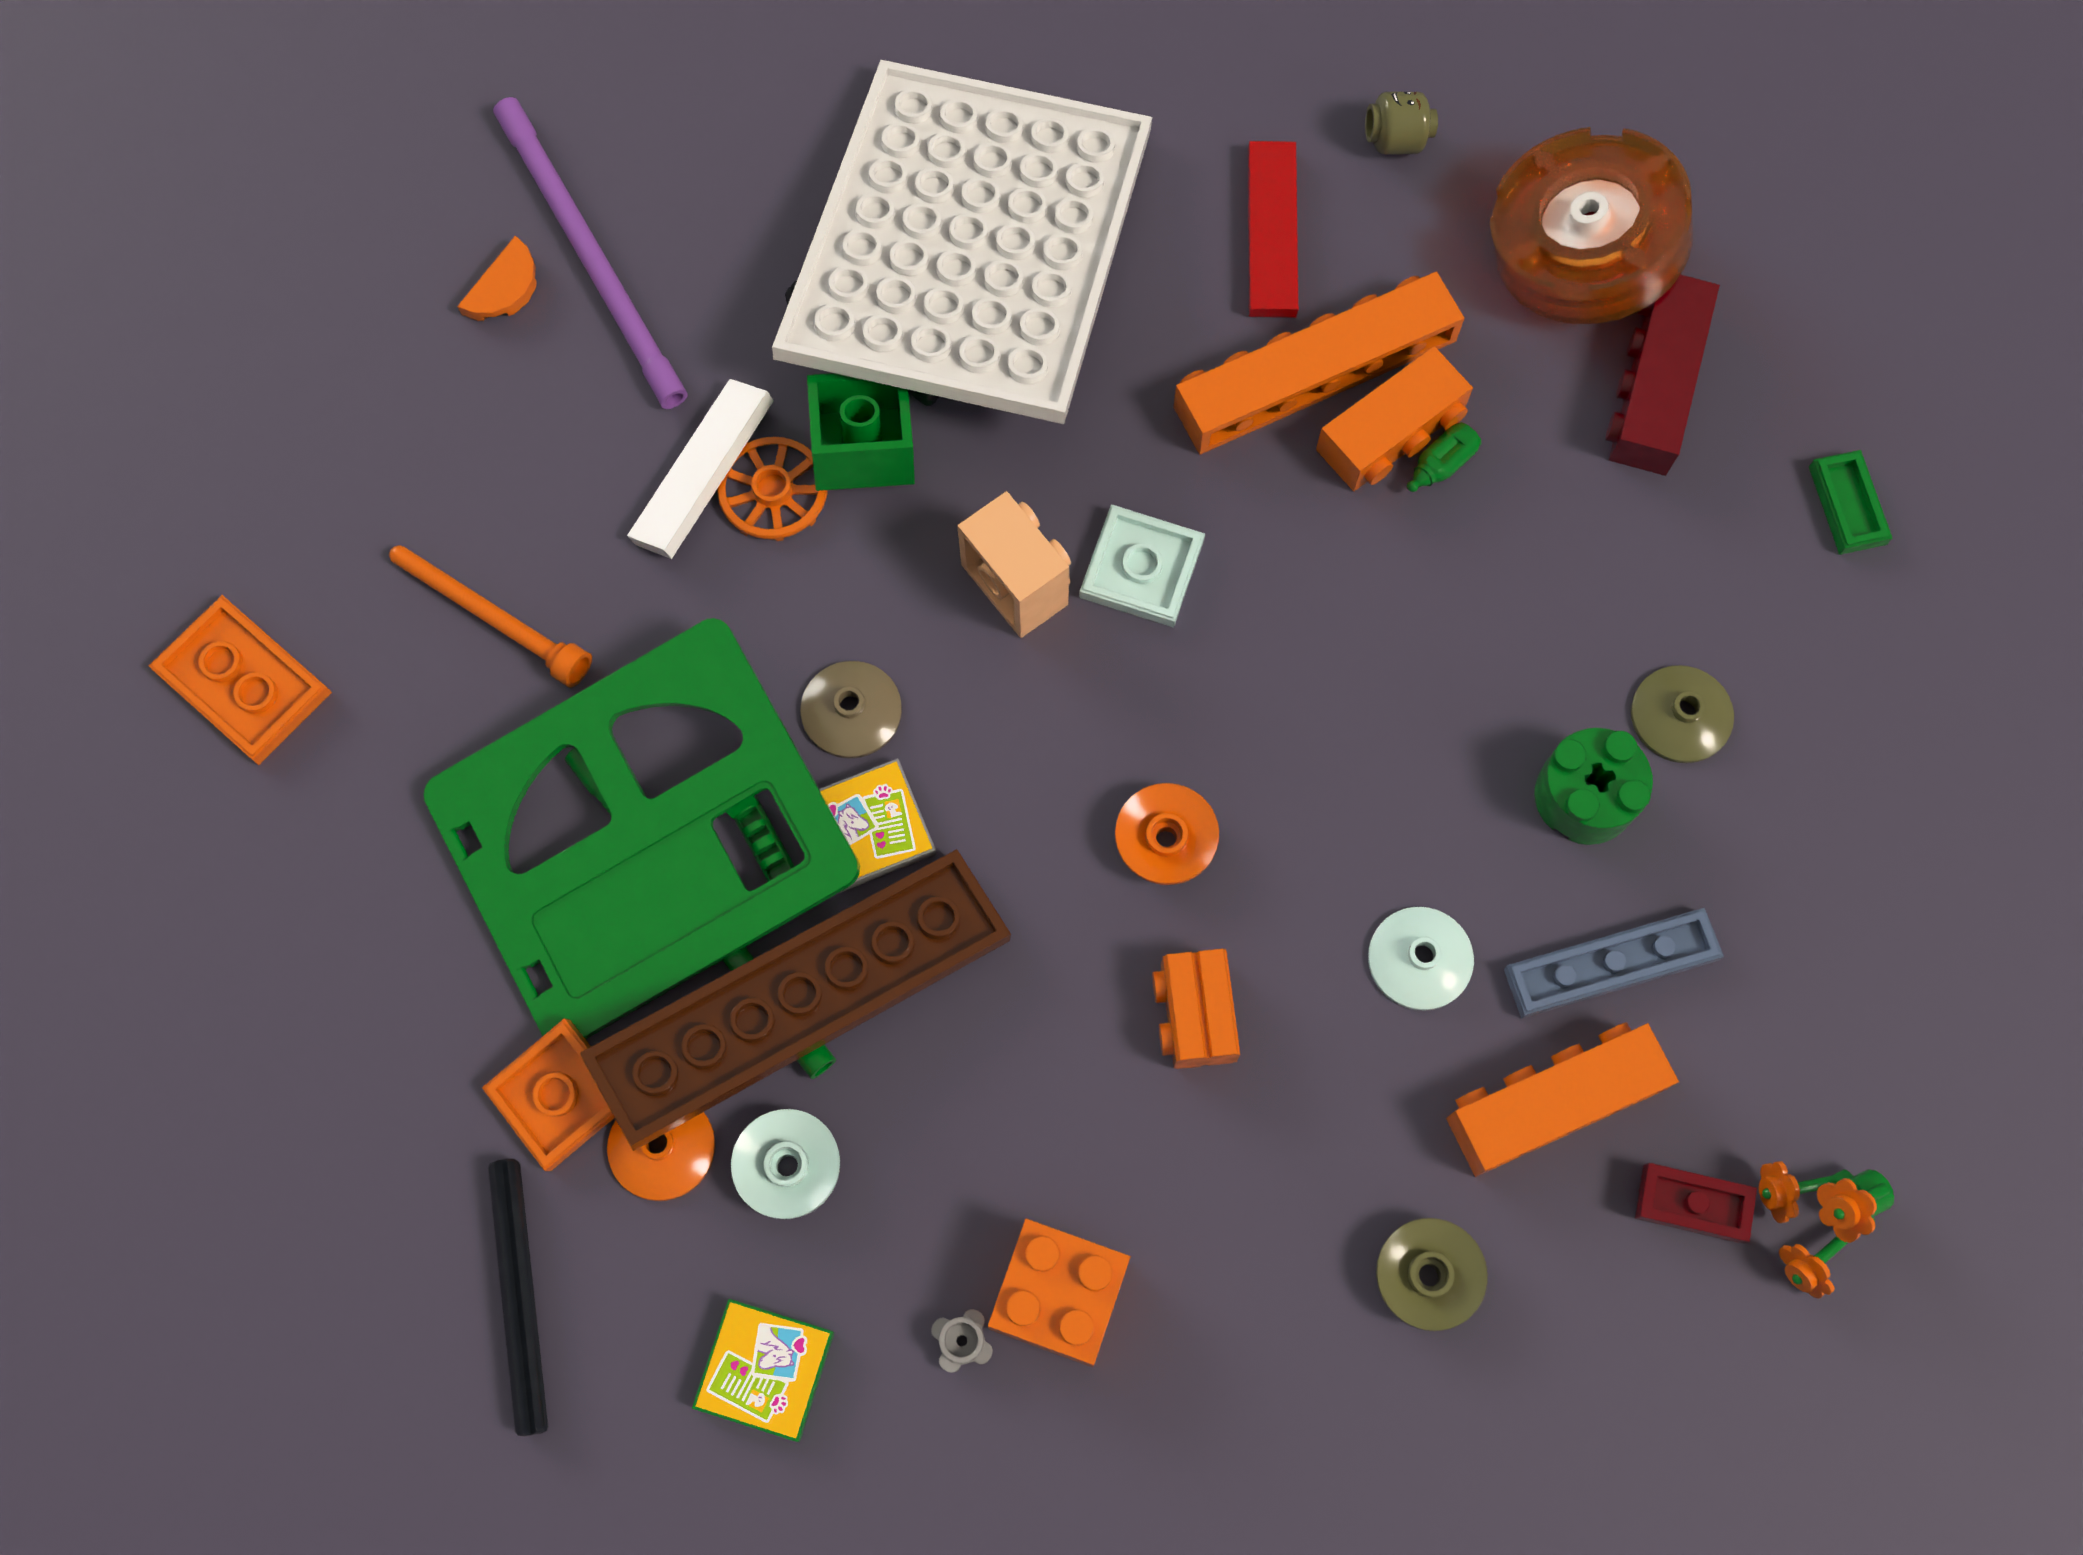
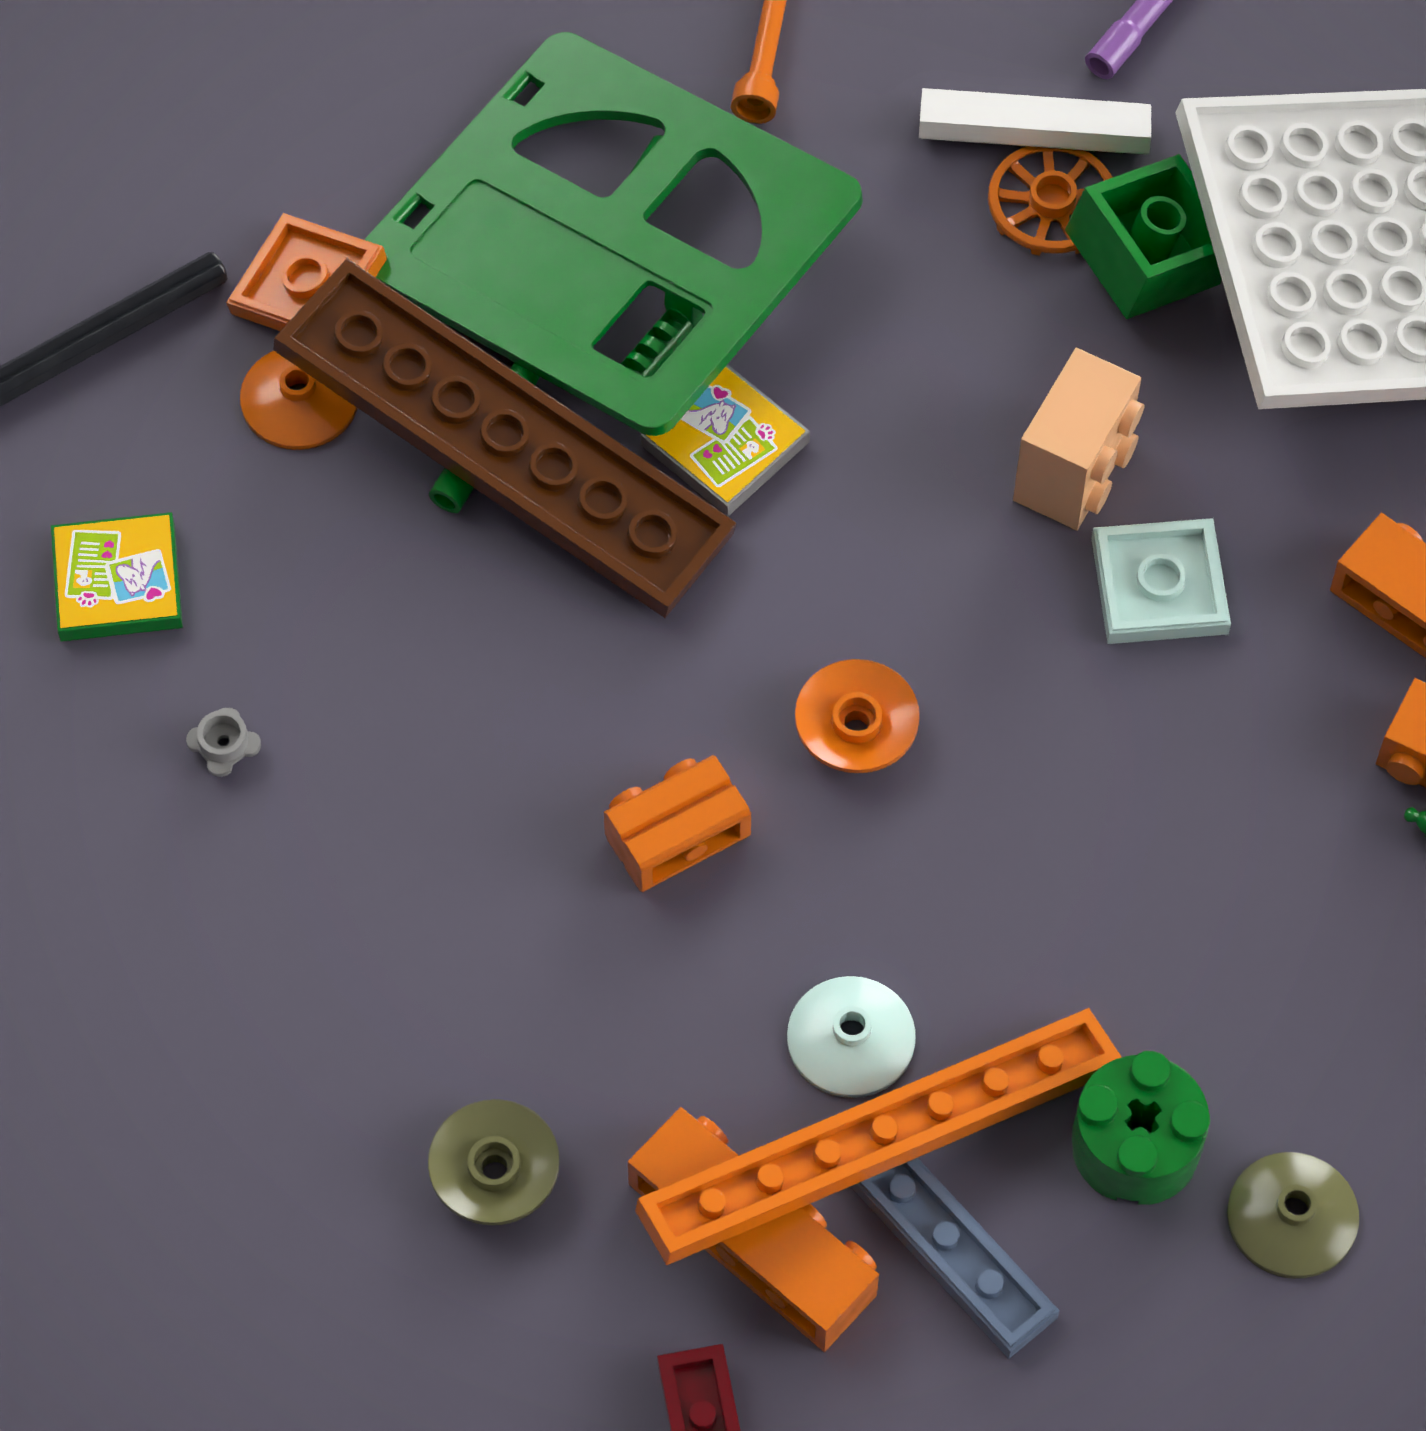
camera: 65 degrees right, 10 degrees down
(762, 1148) = (325, 482): light aqua dish -> none
(853, 731) = (840, 392): dark tan dish -> none
(1059, 1292) = (308, 803): orange brick -> none
(1540, 980) = (874, 1136): none -> orange plate

